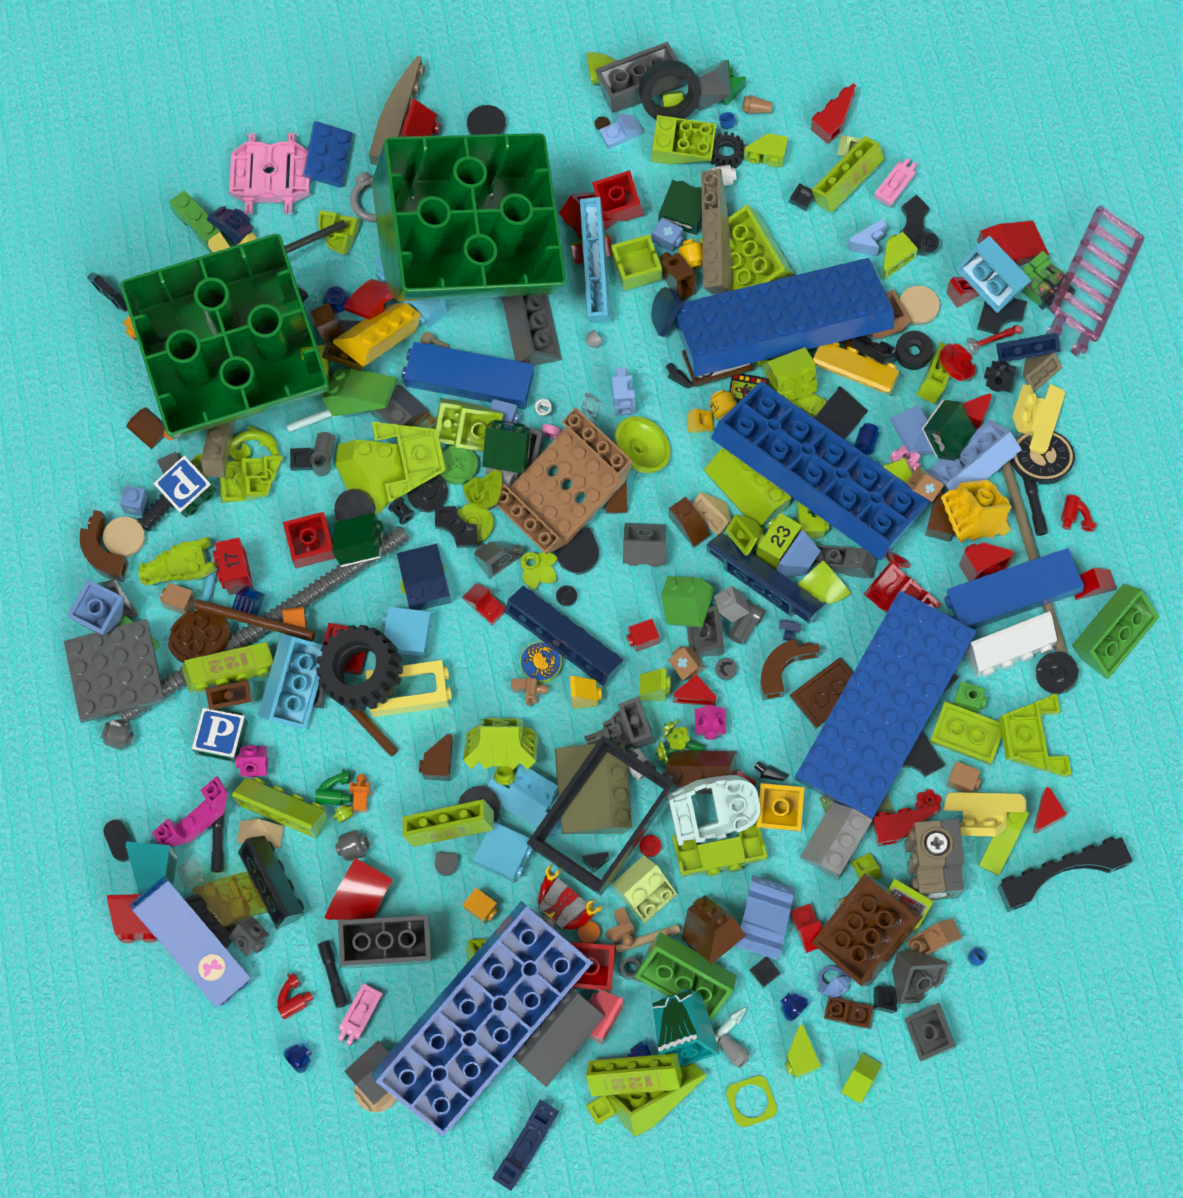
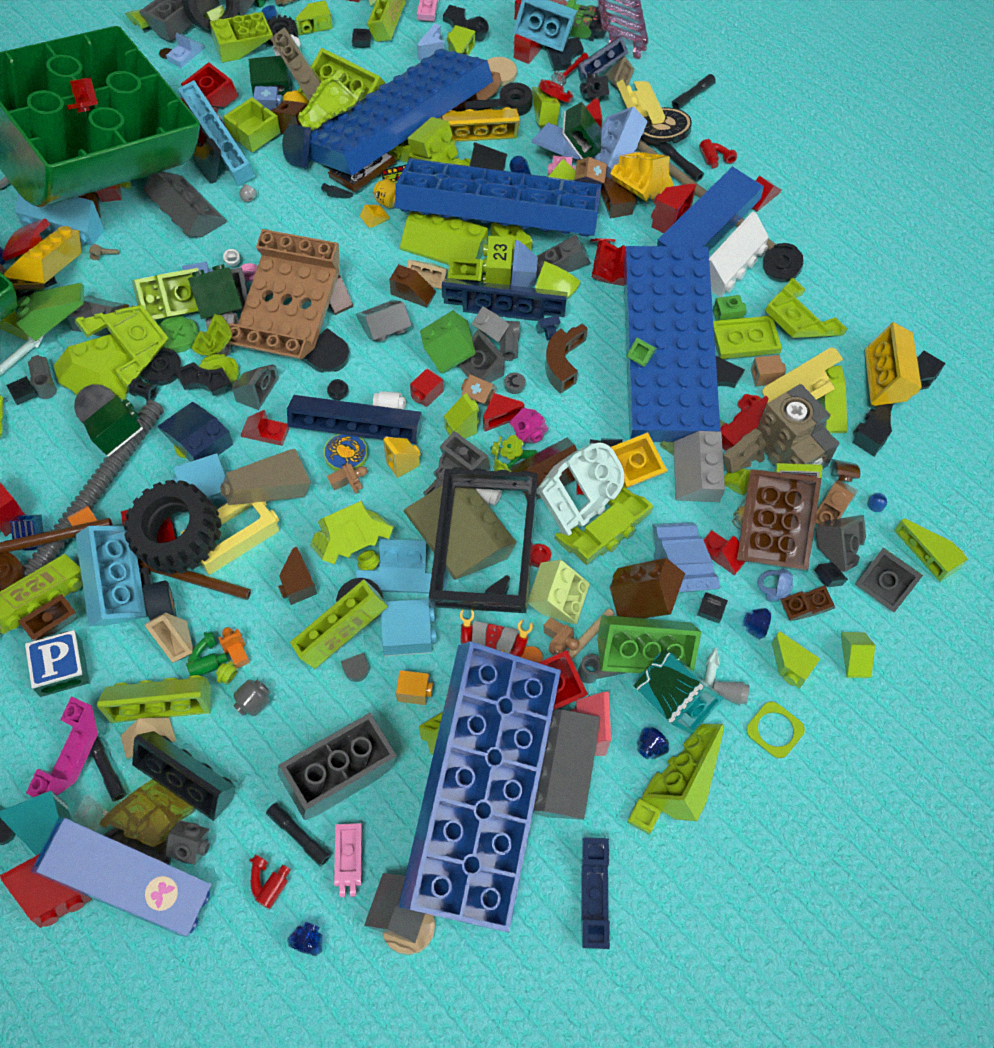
camera: 35 degrees left, 10 degrees down
(253, 761) = (104, 669): dark pink brick -> none
(309, 540) = (64, 449): red brick -> none
(316, 760) = (171, 635): none -> tan slope
(319, 726) = (158, 599): none -> black wheel
(359, 893) = (282, 734): red slope -> none
(458, 660) = (267, 480): none -> dark tan slope
(467, 374) = (116, 266): blue brick -> none
(470, 219) = (84, 95): none -> red bracket
(540, 571) = (300, 380): lime plate -> none
(575, 284) = (207, 159): none -> black tile
(603, 632) = (389, 399): none -> white brick
(622, 393) = (297, 215): light blue hips -> none
(634, 1075) = (660, 761): lime brick -> none
(643, 444) = (350, 249): lime dish -> none
(718, 281) = (329, 101): none -> lime animal
(822, 692) = (608, 363): reddish brown tile -> none
(845, 707) = (641, 352): none -> bright green slope
(881, 849) = (745, 451): none -> dark tan wing
(963, 913) = (845, 470): none -> slope
(993, 1031) = (934, 551): none -> lime slope
(1049, 811) = (852, 362): red slope -> none
(1076, 839) = (892, 366): none -> yellow slope
(1092, 430) = (701, 86): none -> black piece
(1116, 630) = (804, 213): bright green slope -> none

